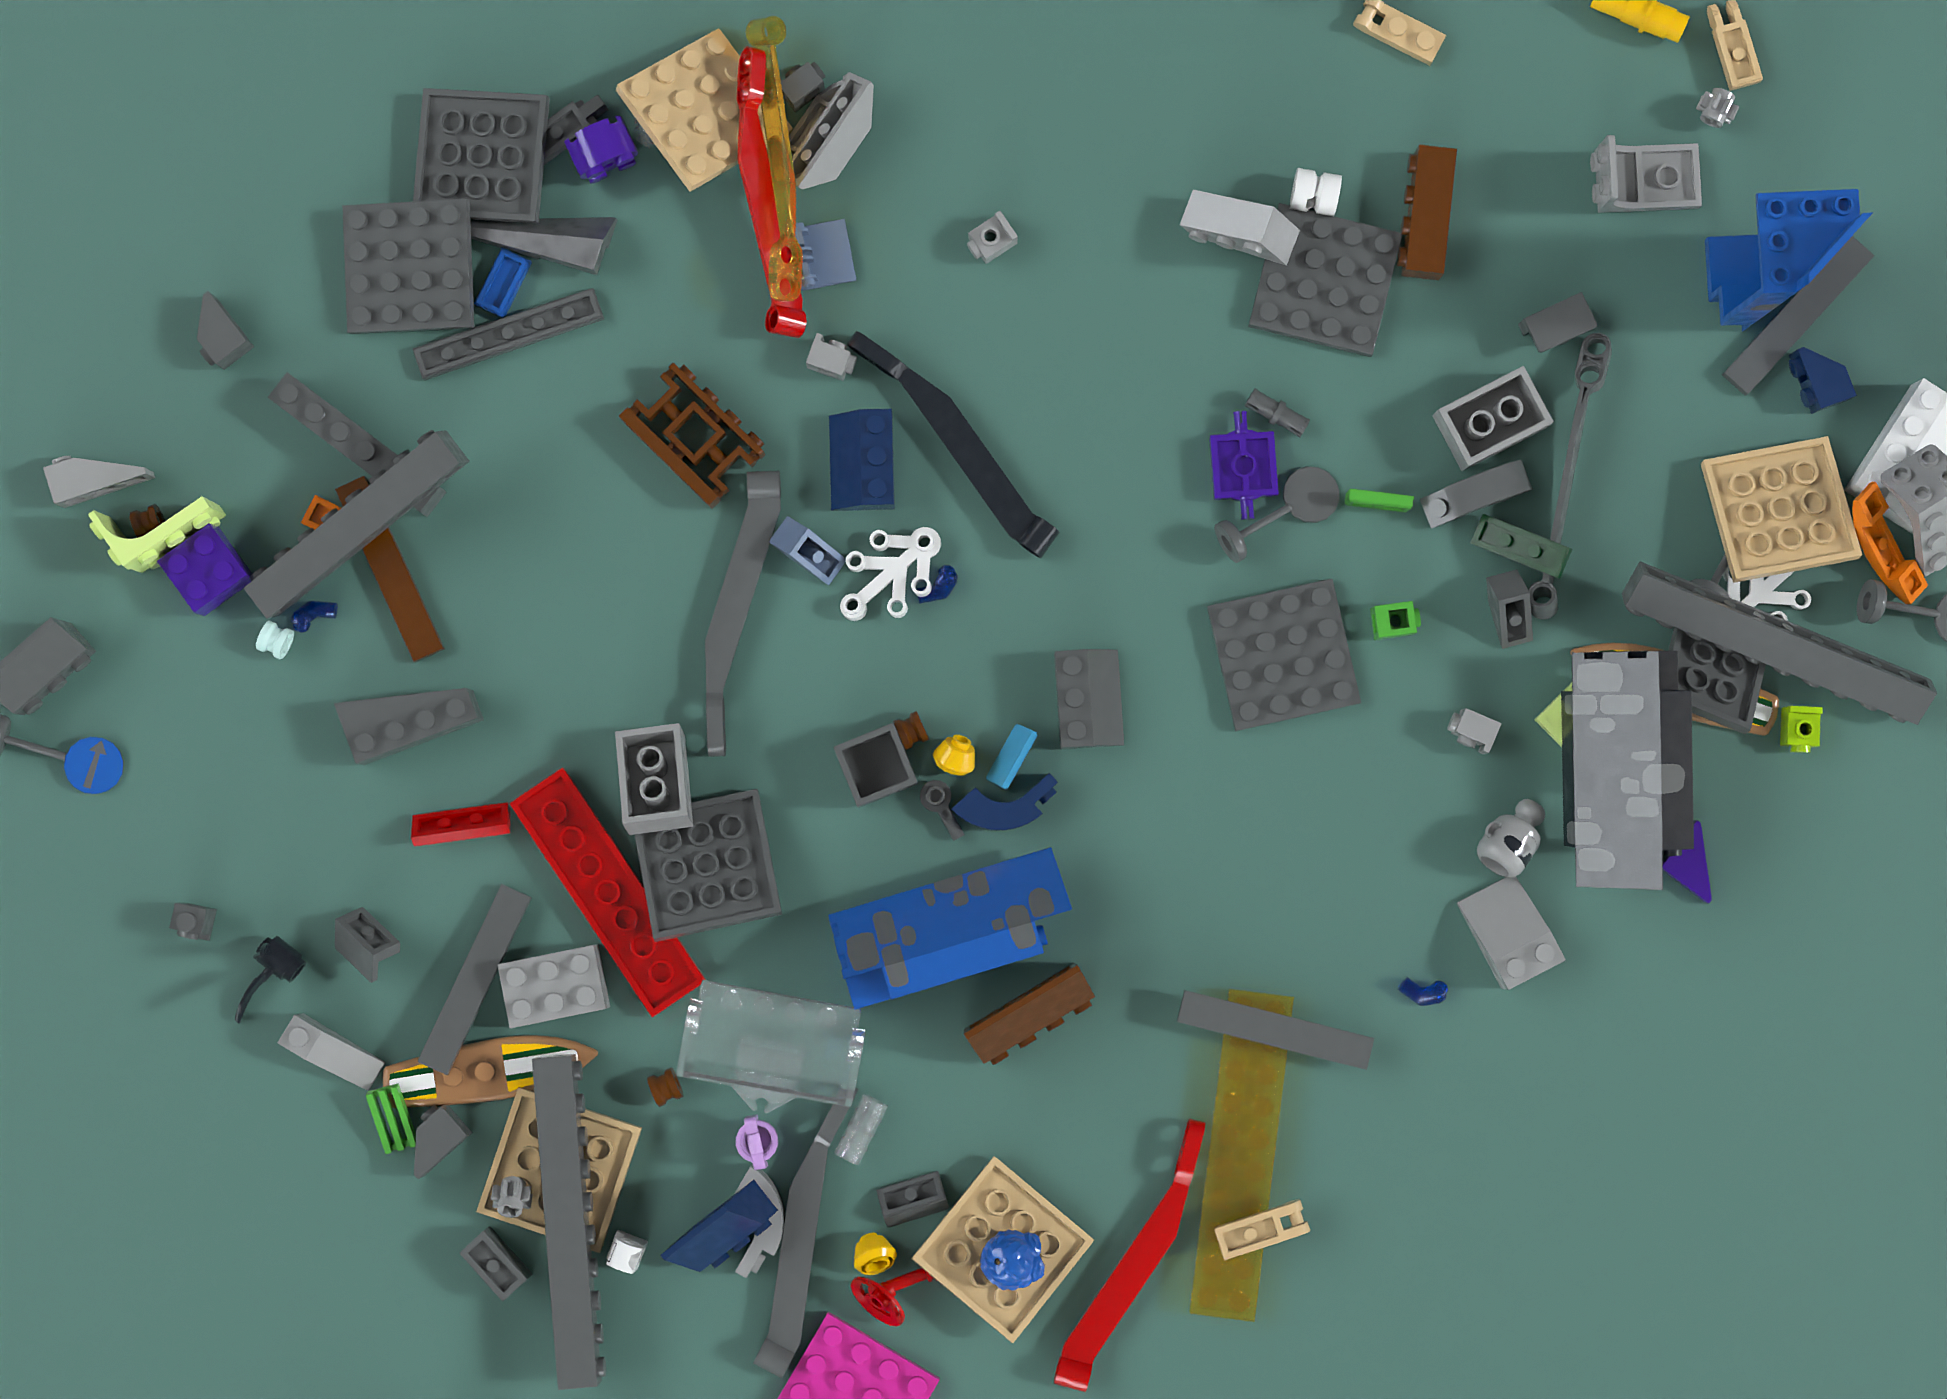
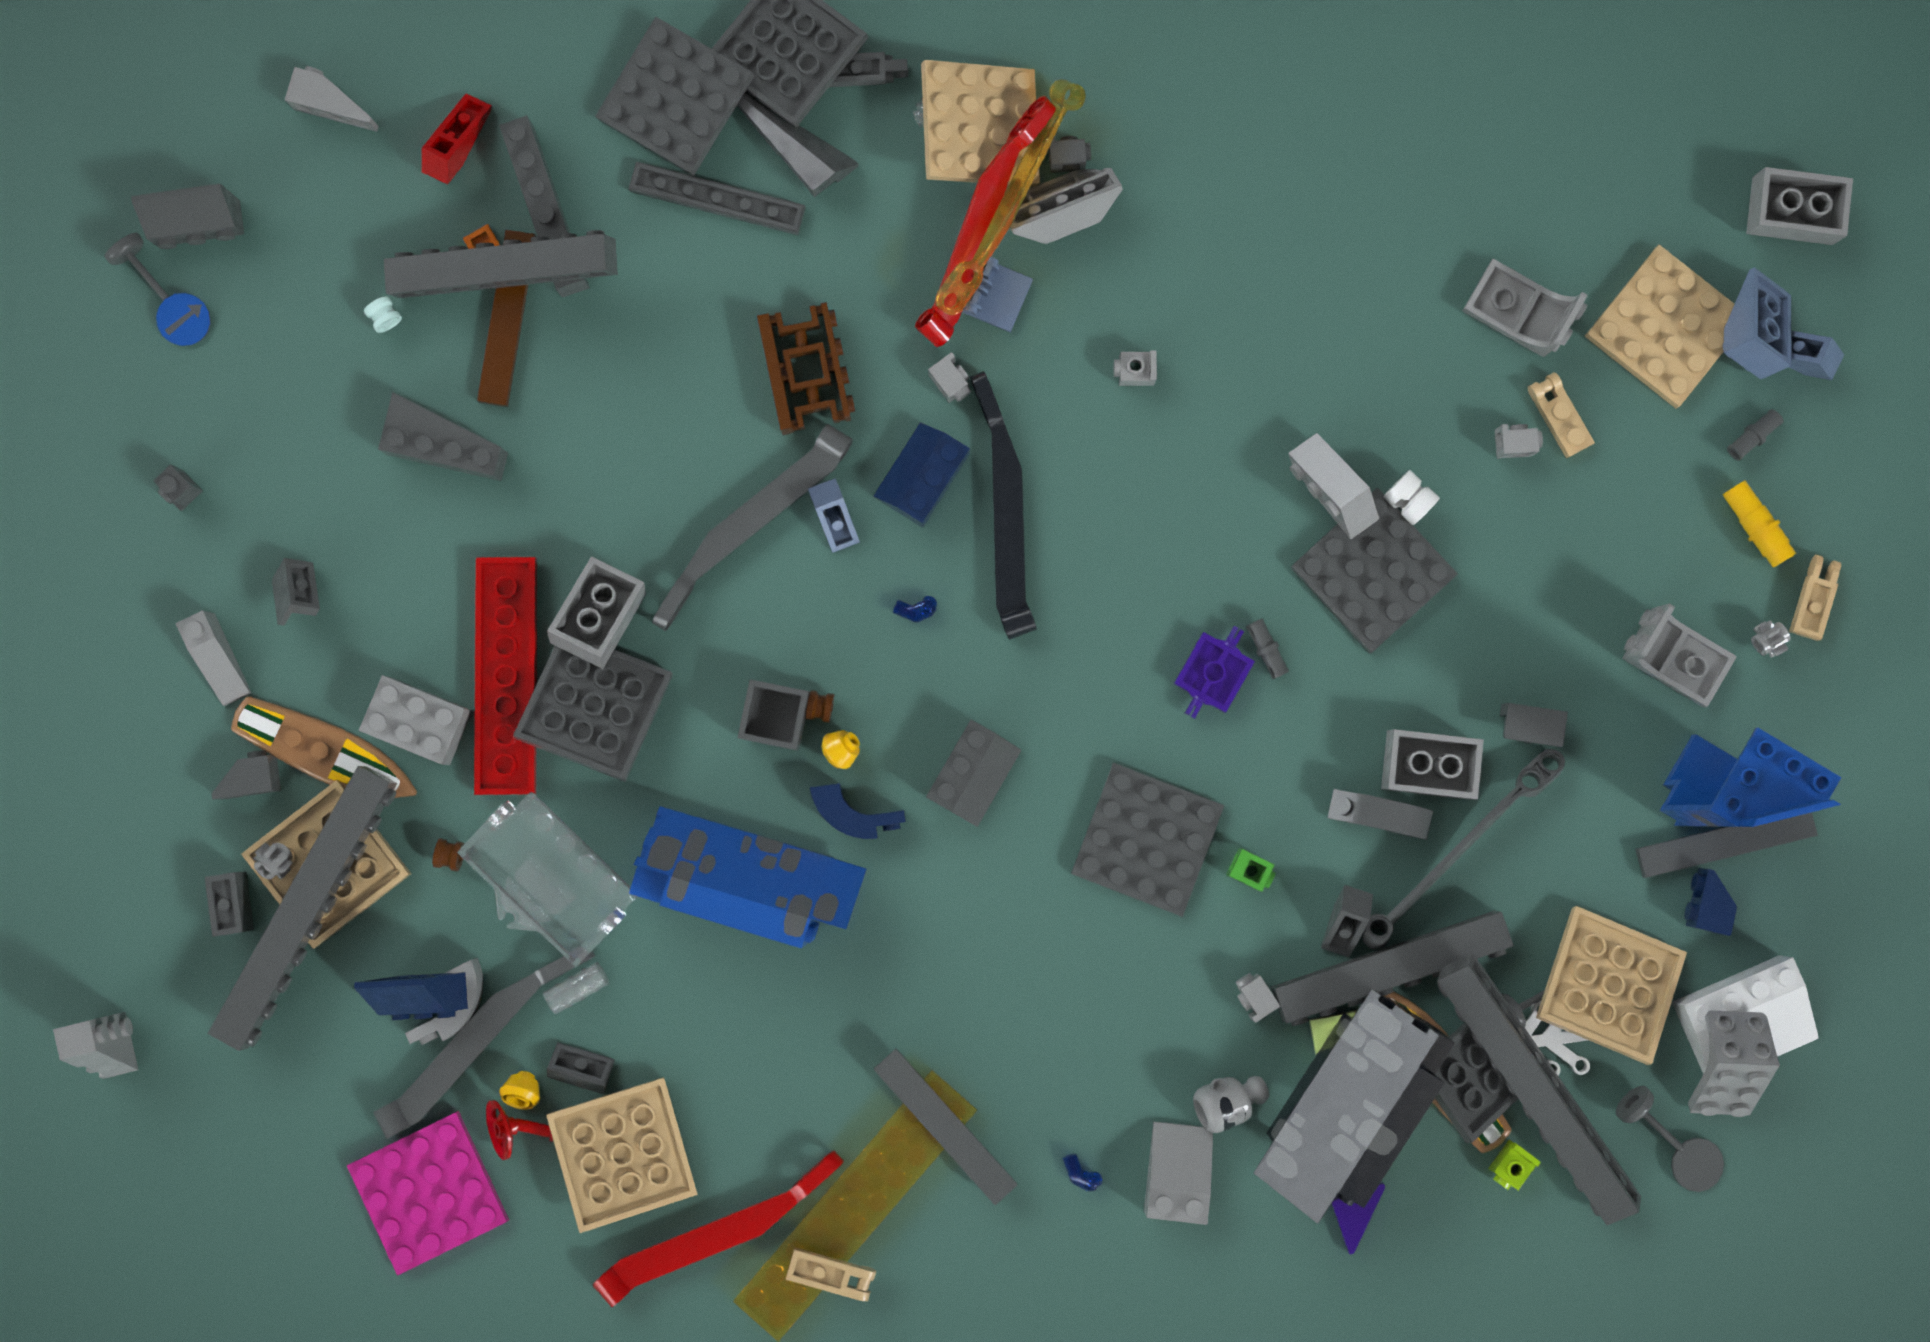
camera: 30 degrees right, 0 degrees up
(144, 551) = (345, 182): yellowish green bracket -> none
(147, 520) = (347, 162): reddish brown wheel -> none
(206, 569) = (366, 226): dark purple brick -> none
(219, 334) = (497, 53): dark grey slope -> none
(232, 437) = (454, 139): none -> red slope
(278, 959) = (221, 559): black plant -> none
(309, 611) = (421, 310): clear blue arm -> none
(385, 1138) = (210, 755): bright green tile -> none
(460, 824) = (428, 549): red plate -> none
(474, 979) = (358, 675): dark grey tile -> none
(502, 283) = (739, 156): blue tile -> none
(602, 148) = (881, 102): dark purple brick -> none
(626, 1252) = (333, 962): white leg -> none
(756, 1141) = (488, 944): lavender piece -> none
(894, 570) = (889, 574): white plant -> none
(936, 798) = (804, 770): dark grey plate -> none
(1011, 756) = (884, 778): dark azure slope -> none
(1018, 1259) = (626, 1171): blue hair -> none
(1029, 1013) = (762, 985): reddish brown slope -> none
(1308, 495) = (1249, 728): dark grey piece -> none
(1376, 79) = (1517, 441): none -> light grey brick
(1378, 500) = (1301, 769): bright green tile -> none
(1428, 212) = (1489, 570): reddish brown brick -> none
(1521, 546) = (1388, 878): dark green tile -> none
(1575, 624) = (1390, 967): none -> dark grey brick
(1880, 548) = (1670, 1067): orange slope -> none

